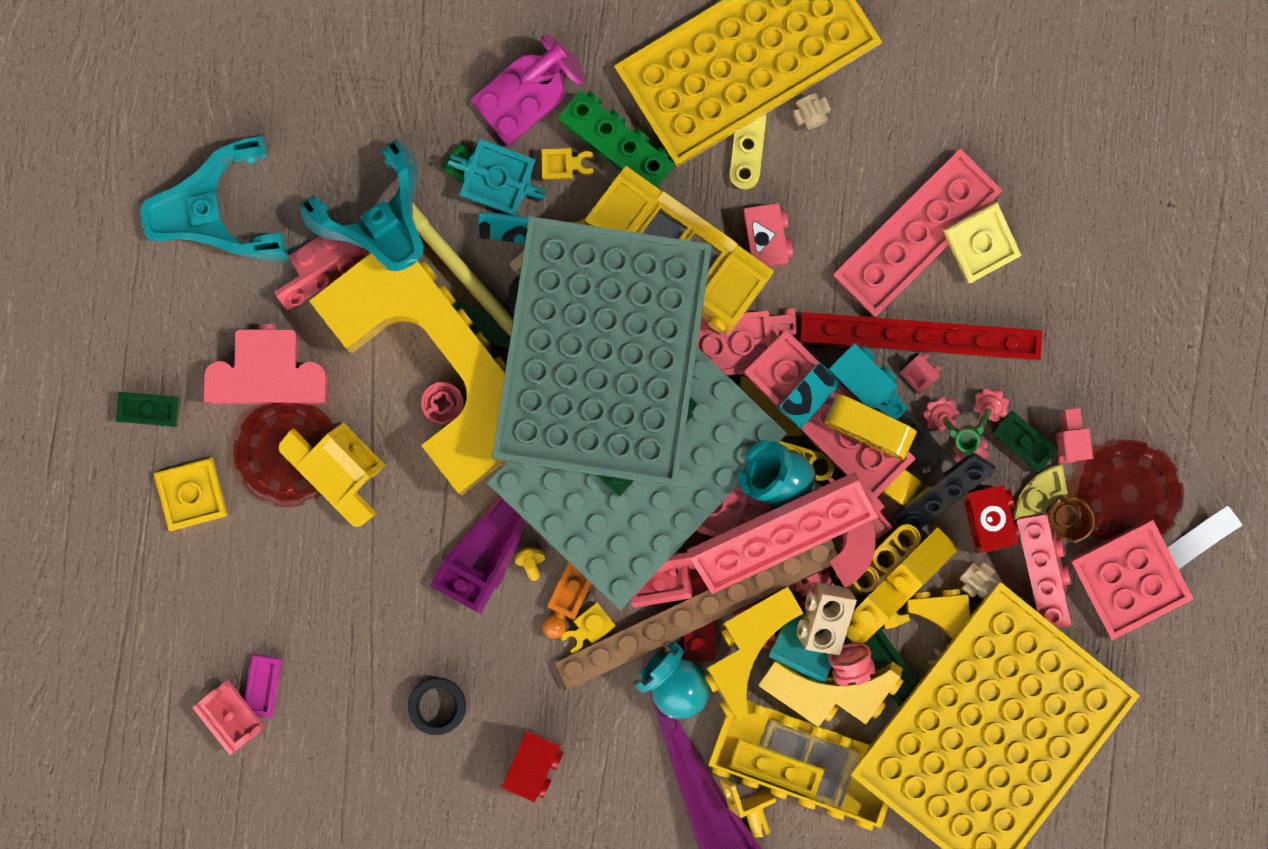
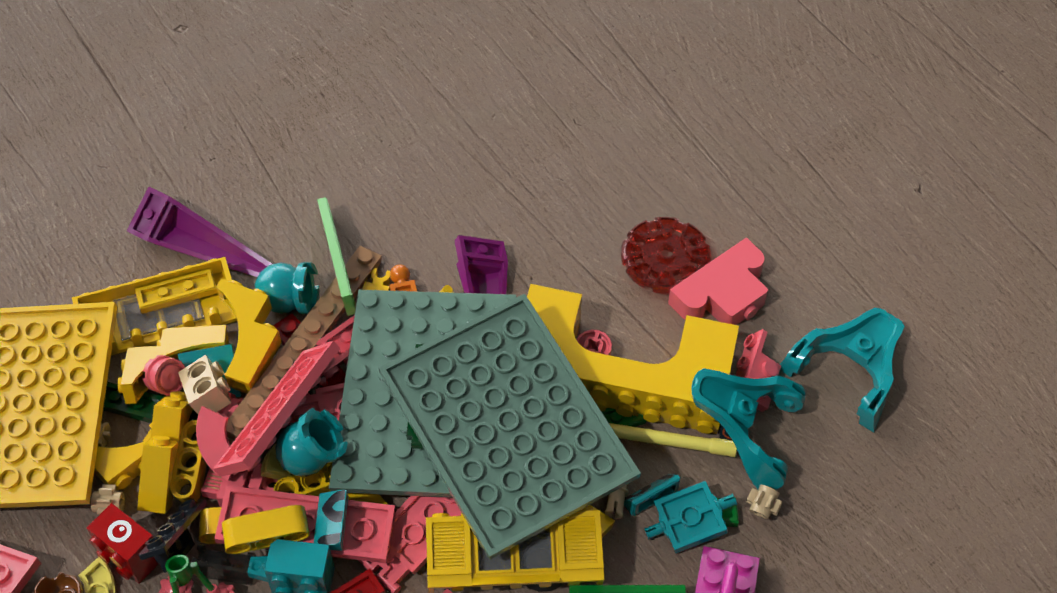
camera: 140 degrees right, 30 degrees down
(148, 409) = (775, 218): dark green plate -> none
(191, 494) = (702, 195): yellow tile -> none
(229, 717) = (562, 94): coral hinge -> none
(263, 684) = (558, 129): dark pink tile -> none
(336, 469) = (625, 263): yellow plate -> none
(414, 702) = (435, 169): black tyre -> none
(424, 140) = (764, 501): none -> tan gear
(532, 765) = (345, 184): red brick -> none
(559, 164) = (652, 562): yellow plate -> none
(604, 682) = (337, 257): none -> tile
(751, 807) = (179, 256): yellow bracket -> none
(1046, 568) = (54, 539): coral bracket -> none

